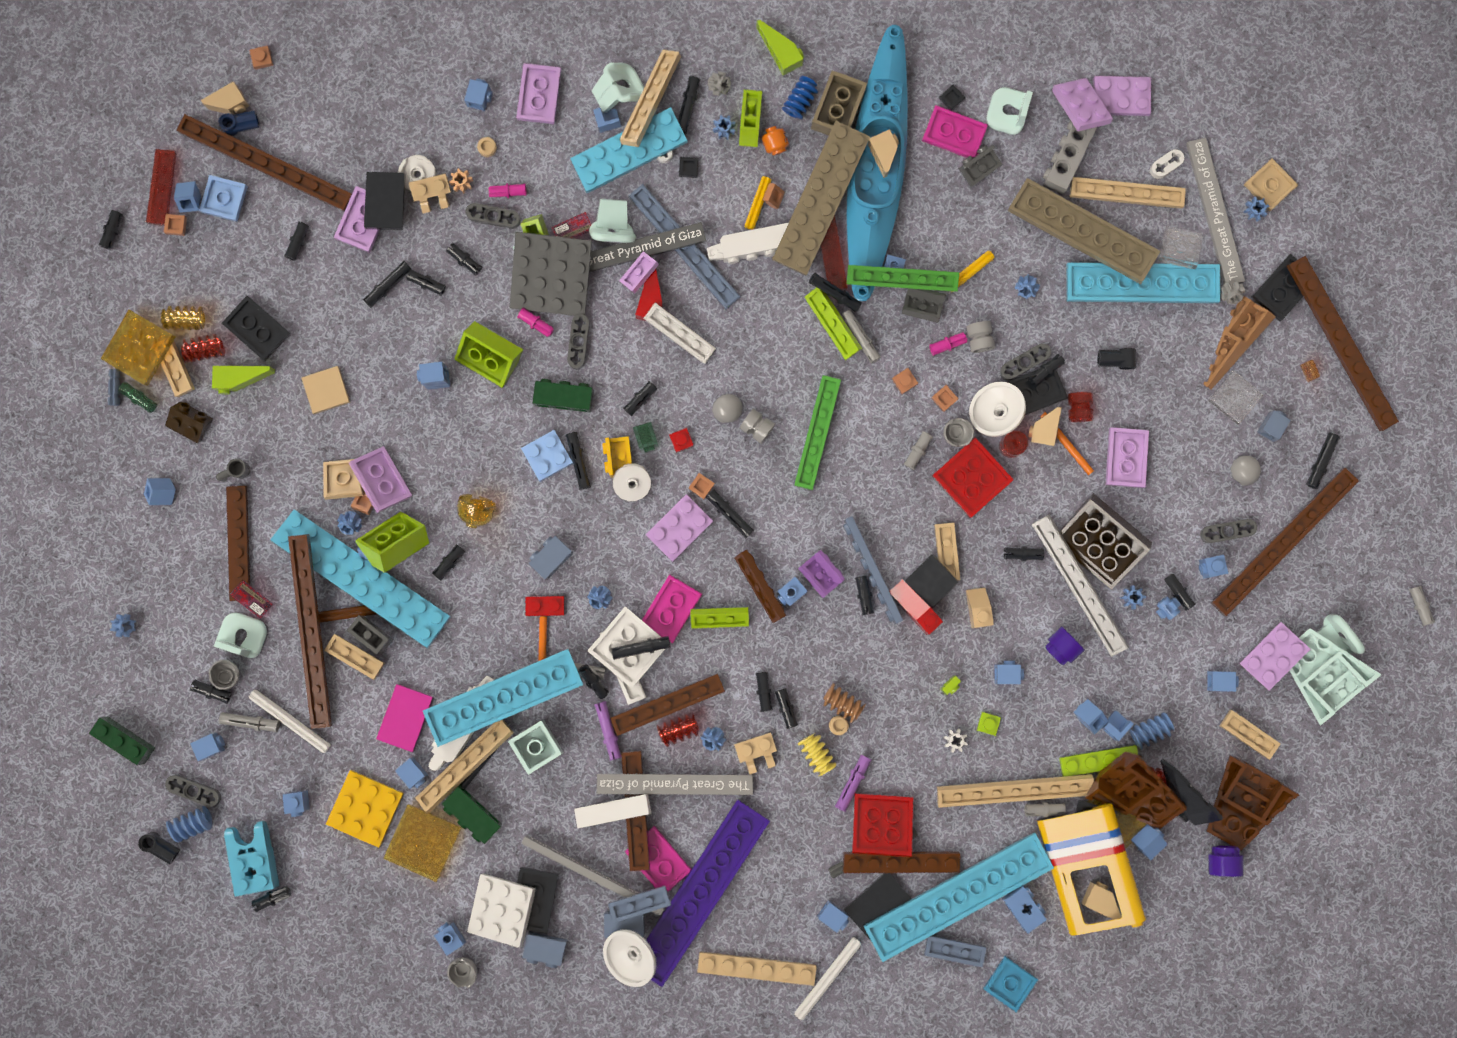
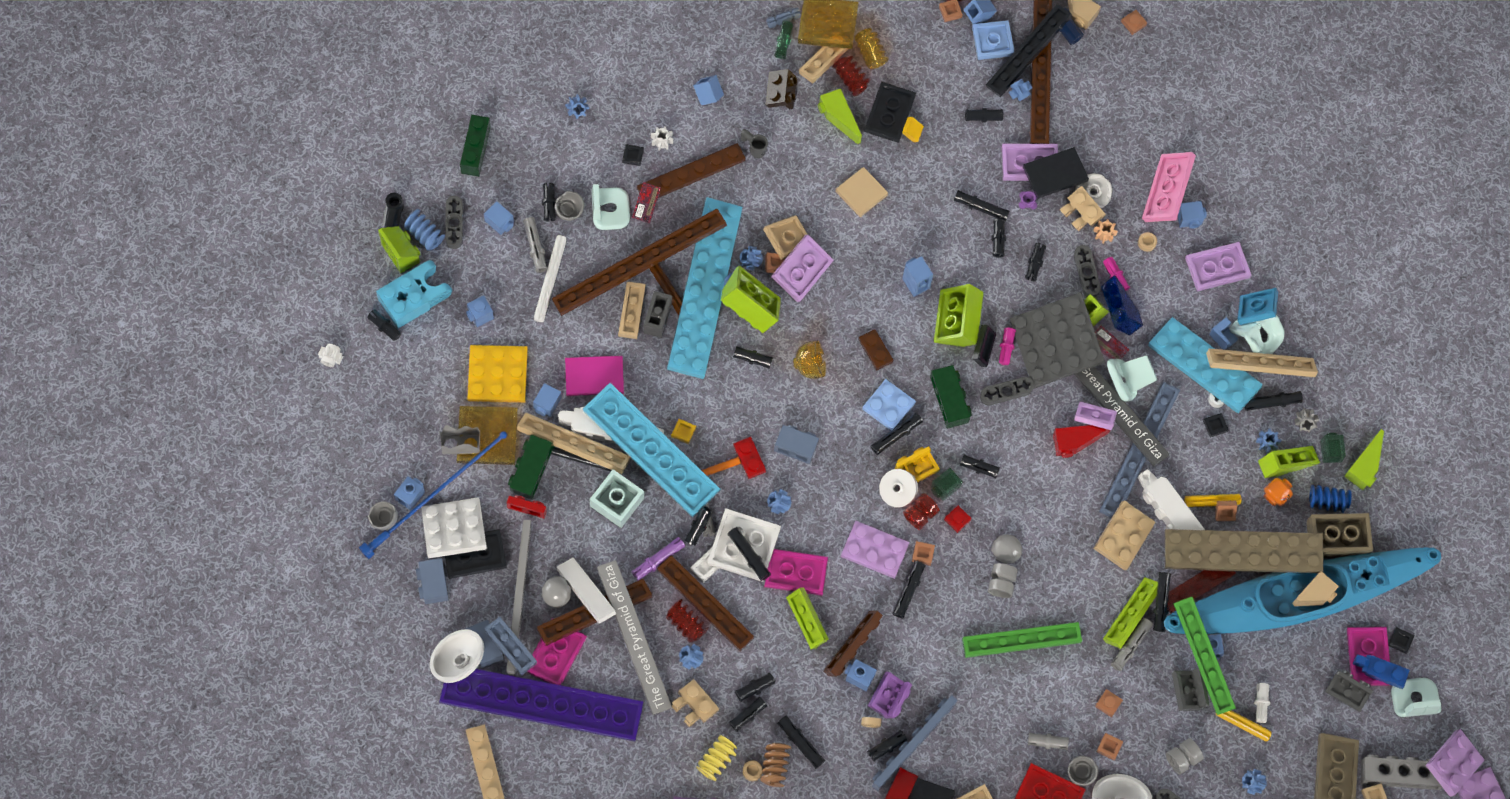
camera: 60 degrees right, 15 degrees down
(193, 561) = (662, 138): none -> white gear
(195, 591) = (632, 155): none -> black tile
(198, 855) = (399, 248): none -> lime slope
(249, 169) = (1028, 50): none -> black plate
(281, 962) = (330, 355): none -> white gear
(283, 314) = (912, 129): none -> yellow tile
(286, 195) = (1020, 90): none -> medium blue gear
(401, 243) = (1028, 195): none -> medium lavender plate
(407, 883) = (467, 432): none -> light grey piece
(443, 102) = (1168, 187): none -> bright pink plate
(488, 444) = (875, 349): none -> reddish brown plate
(489, 998) = (368, 549): none -> blue piece
(493, 656) = (683, 431): none -> yellow tile
(502, 838) = (533, 508): none -> red plate
(526, 343) = (984, 346): none -> black tile
(544, 200) = (1121, 307): none -> clear blue slope
(594, 75) = (1258, 306): none -> dark azure tile
(601, 838) = (556, 592): none -> light grey hair
(662, 471) = (919, 513): none -> clear red wheel
(679, 333) = (1056, 475): white tile -> none
(754, 72) = (1332, 448): none -> clear green brick
(758, 297) = (1124, 535): none -> tan plate
(830, 671) = (794, 734): none -> black pin
(838, 601) = (871, 722): none -> tan tile
(948, 343) = (1163, 729): dark pink axle -> none
(959, 246) = (1262, 702): none -> white axle
(974, 127) = (1382, 670): none -> blue hinge

